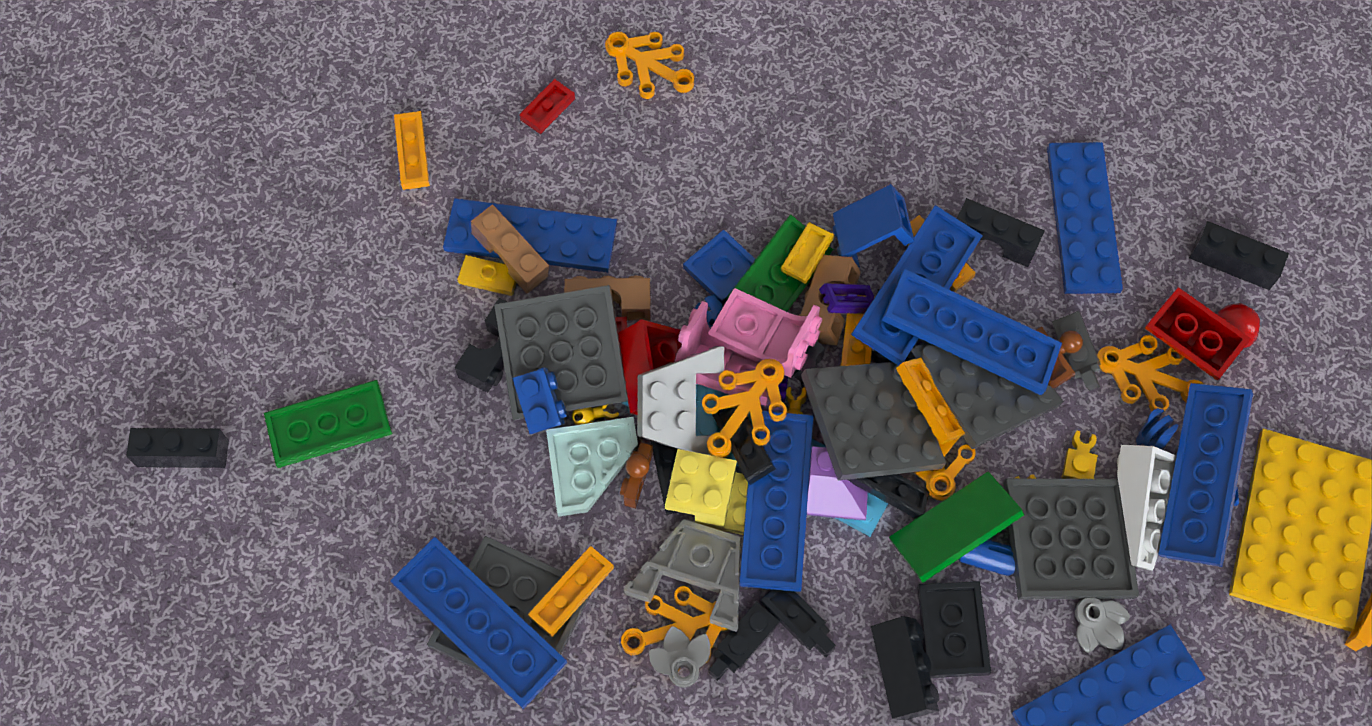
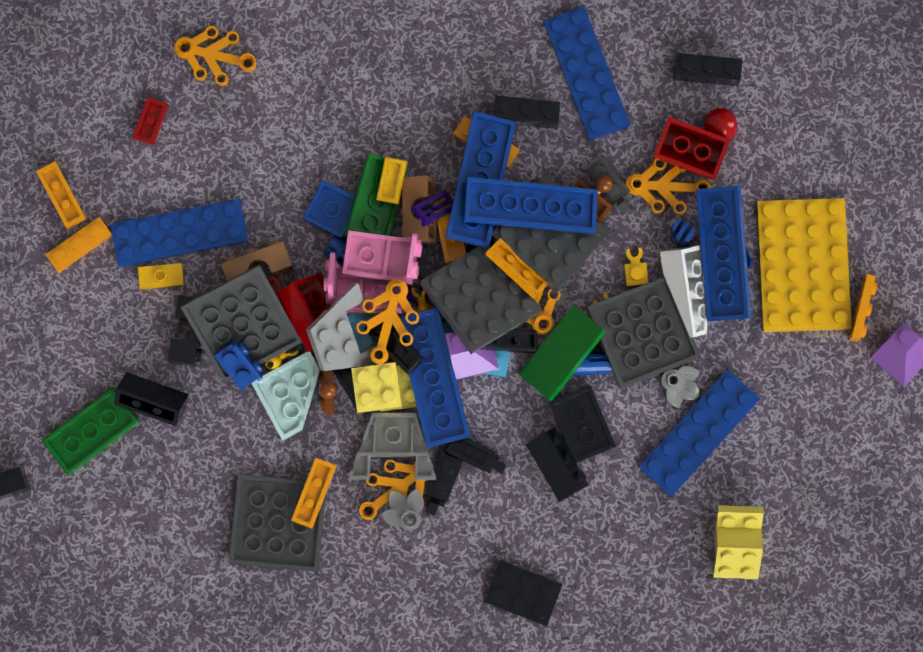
camera: 20 degrees left, 15 degrees up
(408, 210) = (78, 244): none -> light orange plate
(415, 407) = (151, 399): none -> black brick
(479, 622) = (258, 536): blue plate -> none
(500, 236) = (171, 254): medium nougat arch -> none
(872, 221) = (432, 142): blue panel -> none

